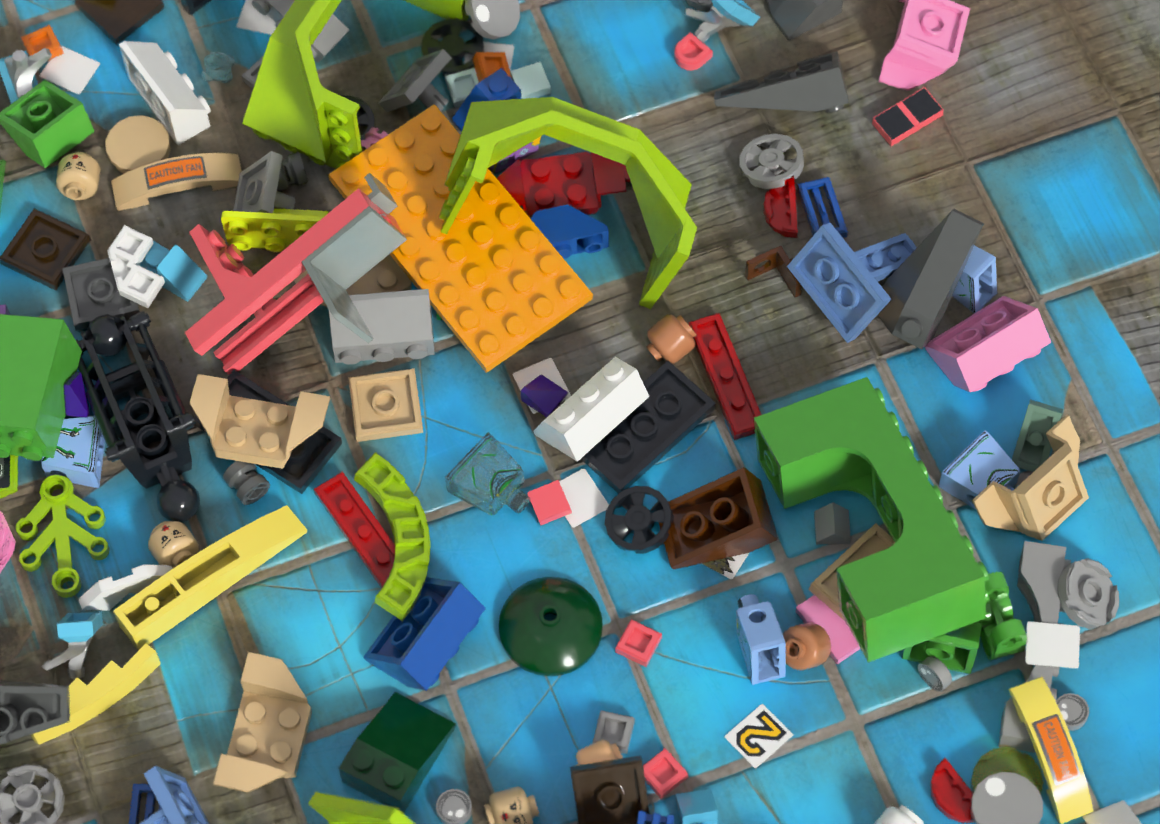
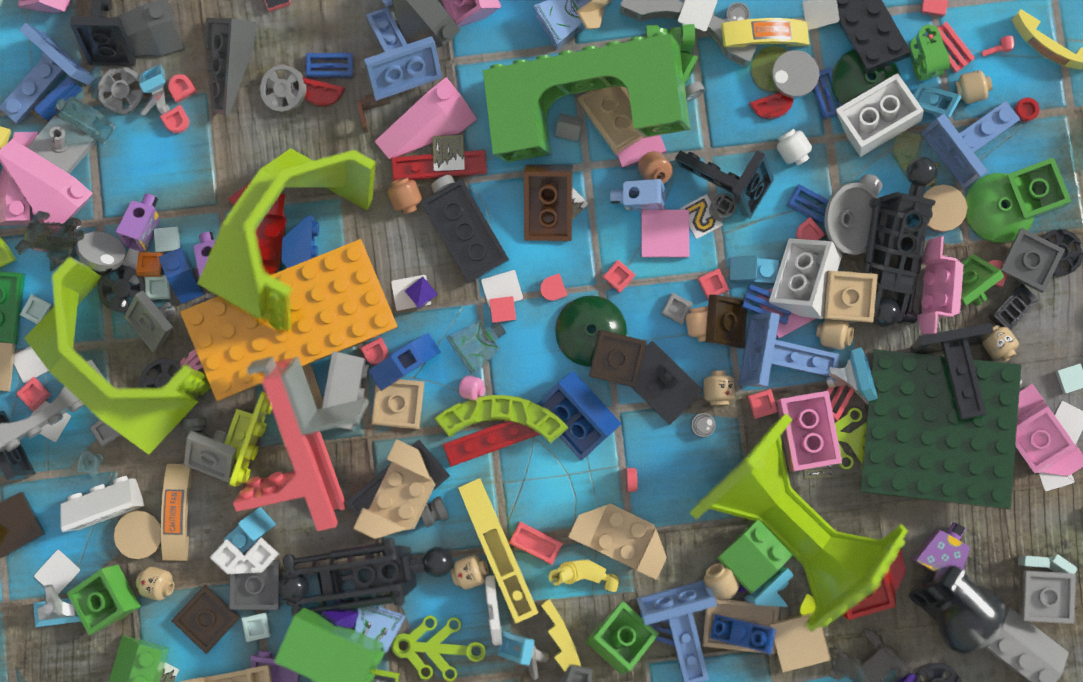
camera: 75 degrees left, 20 degrees up
(42, 39) = (31, 589): orange tile -> none
(46, 306) = (256, 627): none -> light aqua tile
(118, 763) = (622, 638): none -> bright green slope
(208, 689) = (576, 570): none -> light yellow arm
(233, 625) = (535, 543): none -> coral tile
(349, 725) = (631, 479): none -> coral tile
(396, 752) = (655, 452): dark green slope -> none
(429, 488) = (471, 388): none -> bright pink piece
(444, 393) = (404, 361): none -> blue slope
(448, 361) = (375, 351): none -> coral tile
(500, 735) = (665, 384): none -> black piece
(517, 661) = (617, 358): none -> dark brown tile
(541, 39) = (138, 224): none -> medium lavender torso
(594, 409) = (445, 262): white slope -> none
(597, 561) = (553, 288): none -> coral tile
(638, 520) = (532, 252): black piece -> none
(702, 380) = (442, 183): none -> light grey tile
(717, 689) = (664, 233): none -> bright pink tile
(735, 47) = (181, 87): none -> coral tile
(746, 379) = (448, 152): none -> sticker
(773, 760) = (720, 211): none -> dark grey wheel
(788, 347) = (437, 113): none -> bright pink wedge
(815, 769) = (747, 189): none -> black piece

